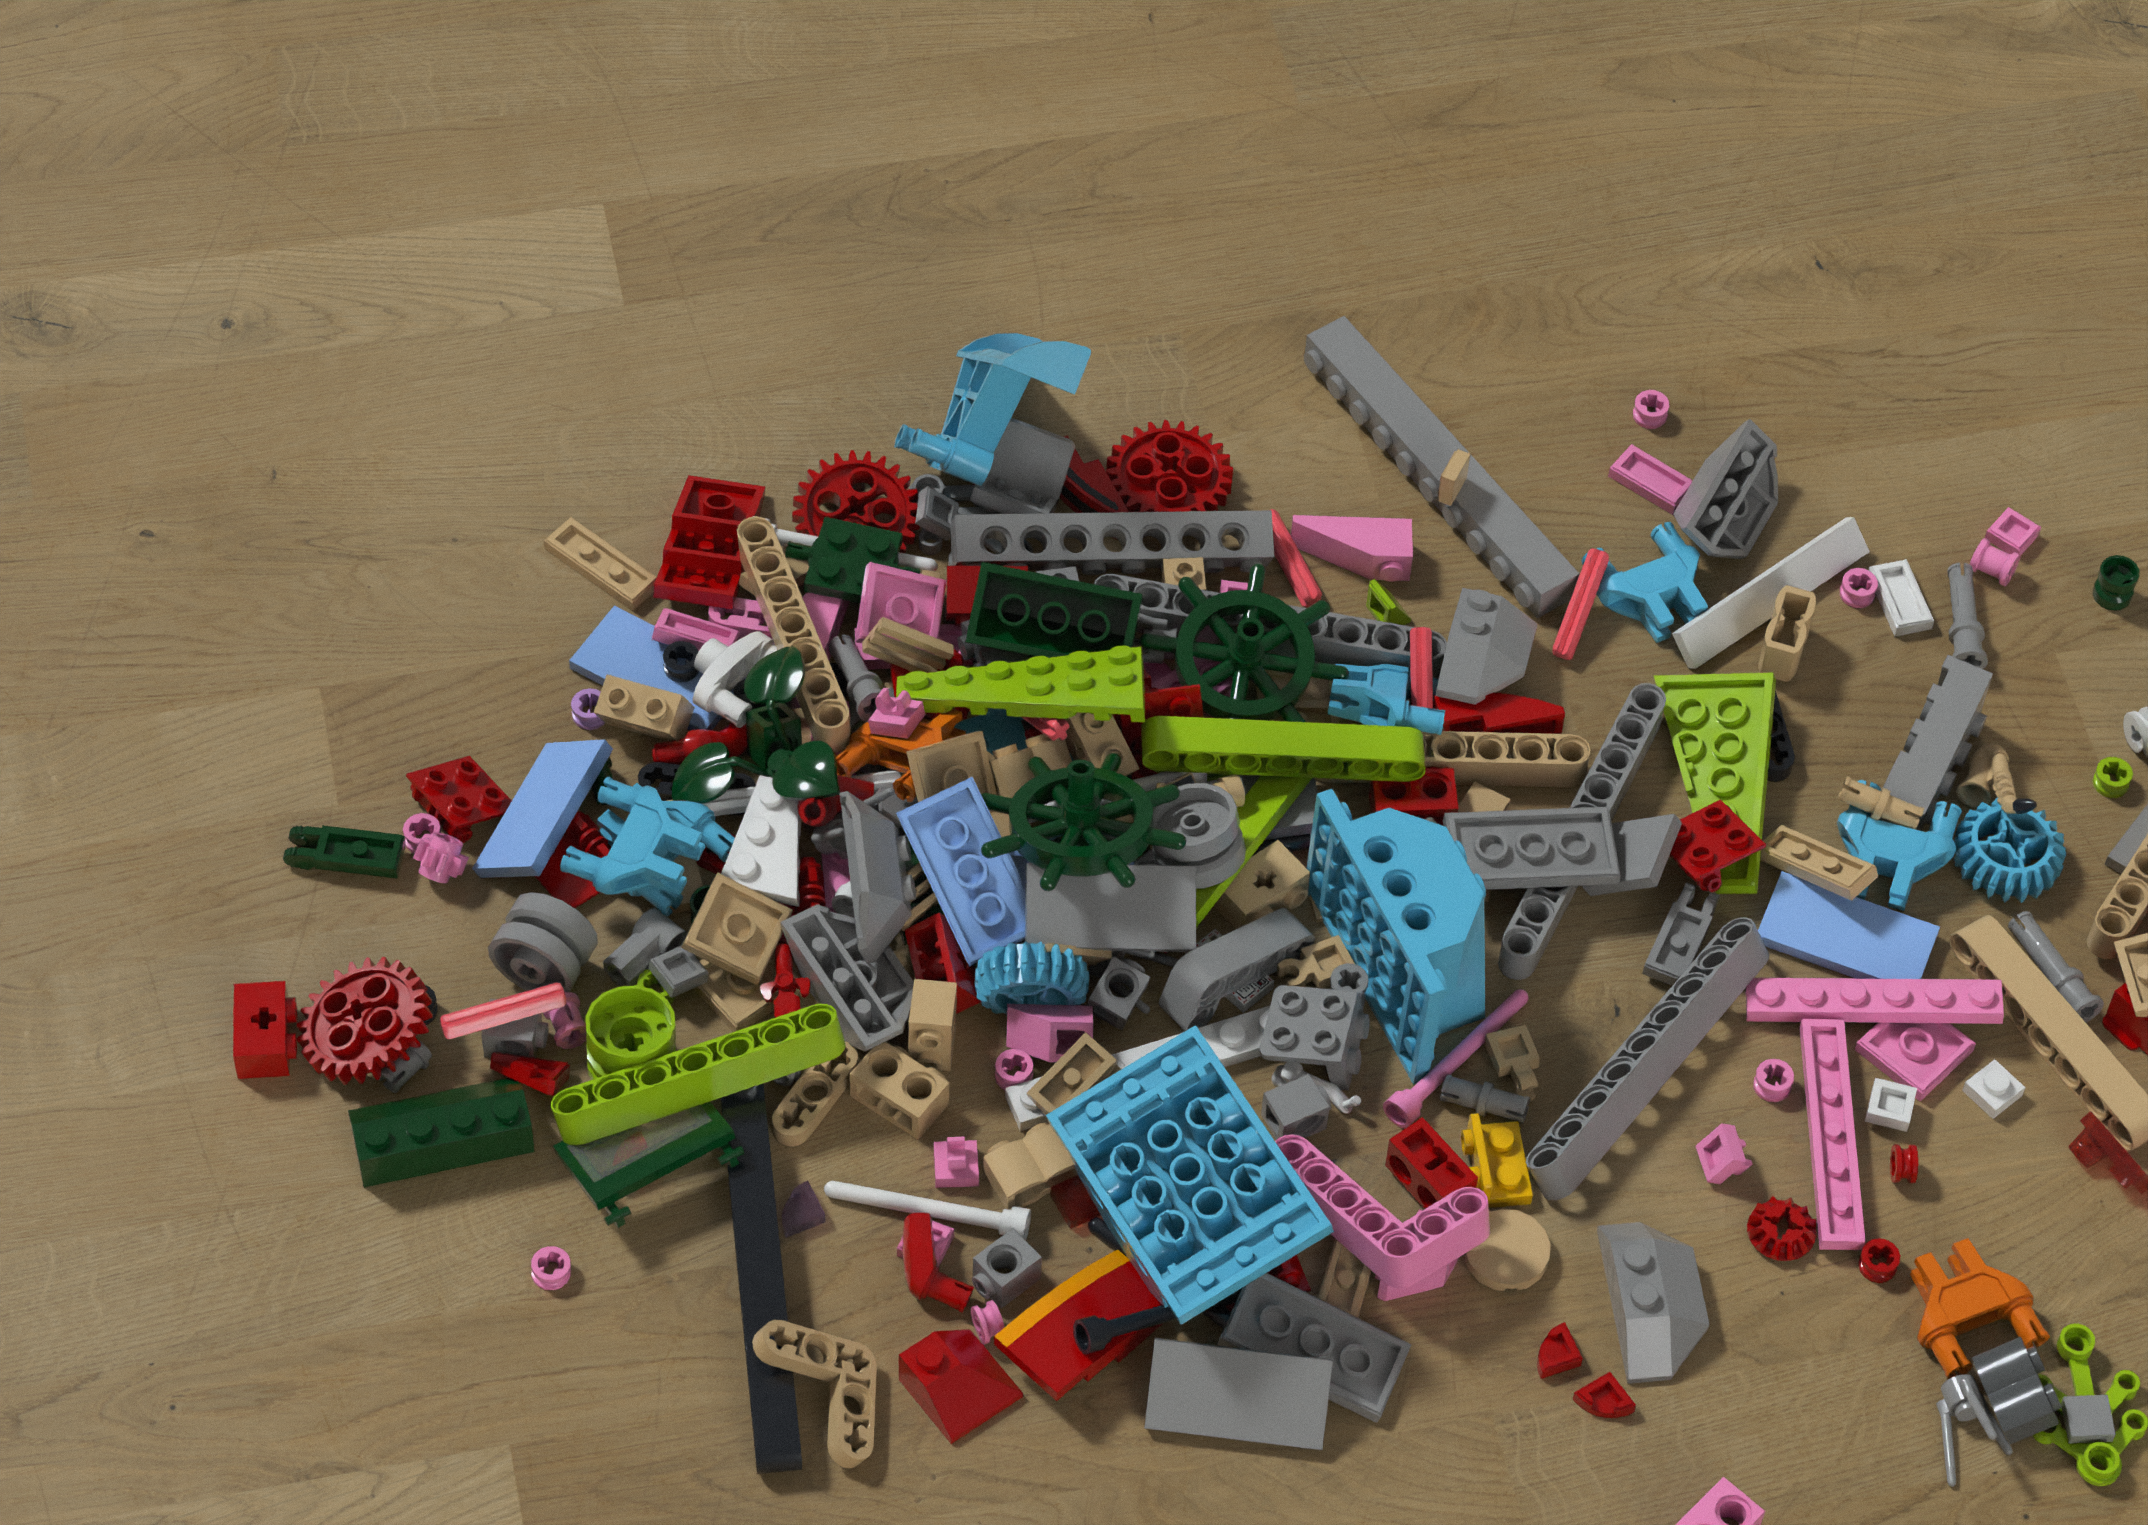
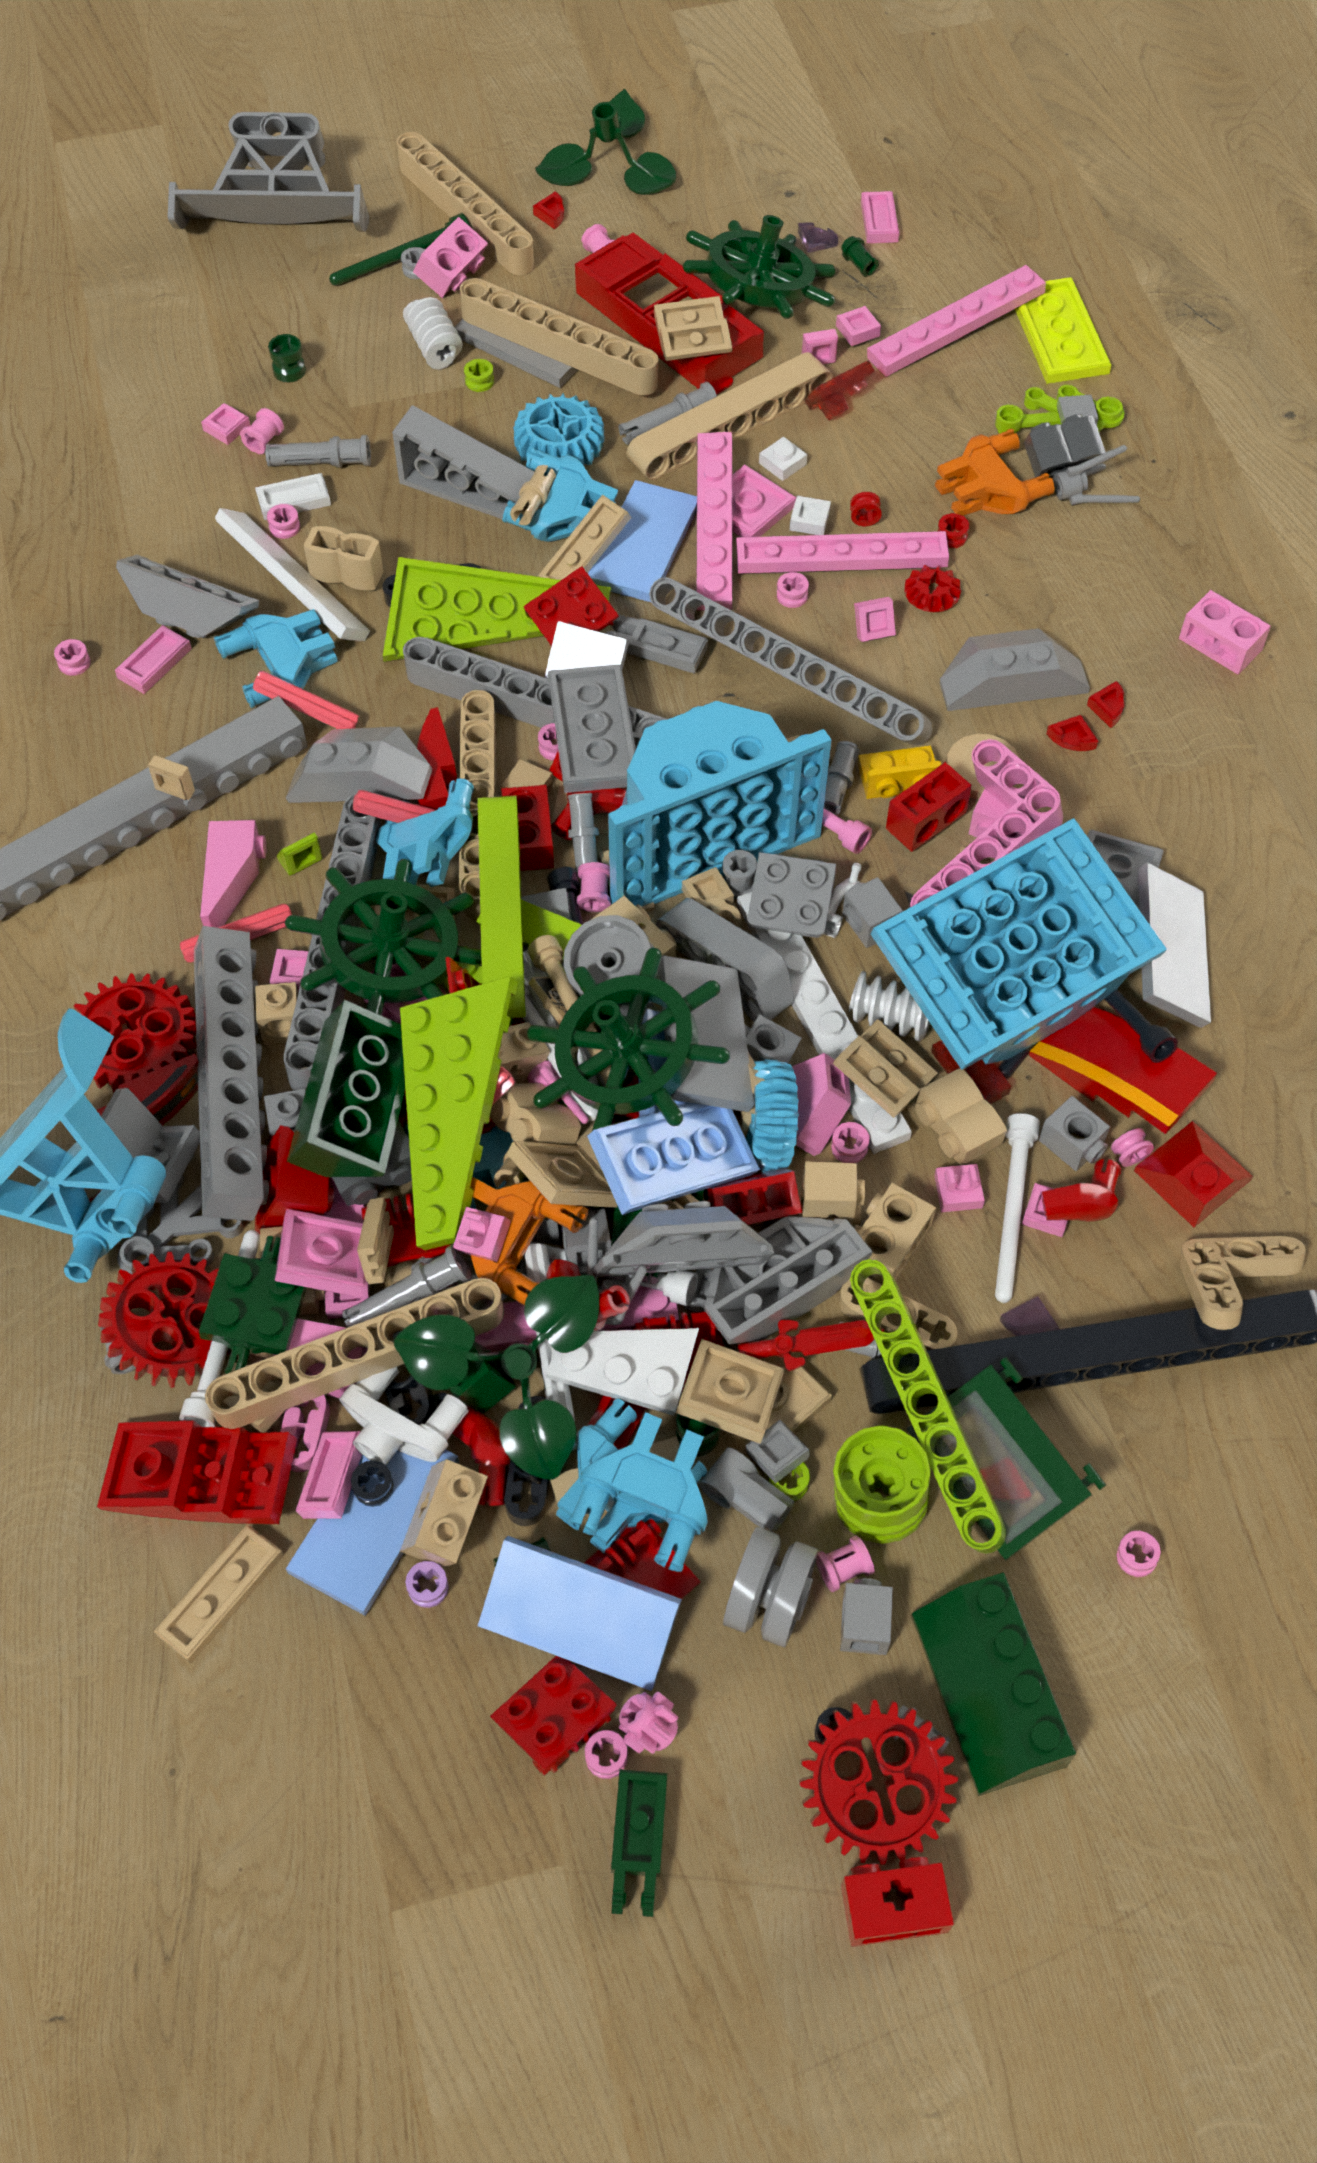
camera: 90 degrees left, 5 degrees up
(503, 1010) = (867, 1617): coral axle -> none
(536, 1073) = (918, 1584): red tile -> none
(936, 512) = (178, 1236): light grey tile -> none
(1988, 771) = (488, 431): tan piece -> none

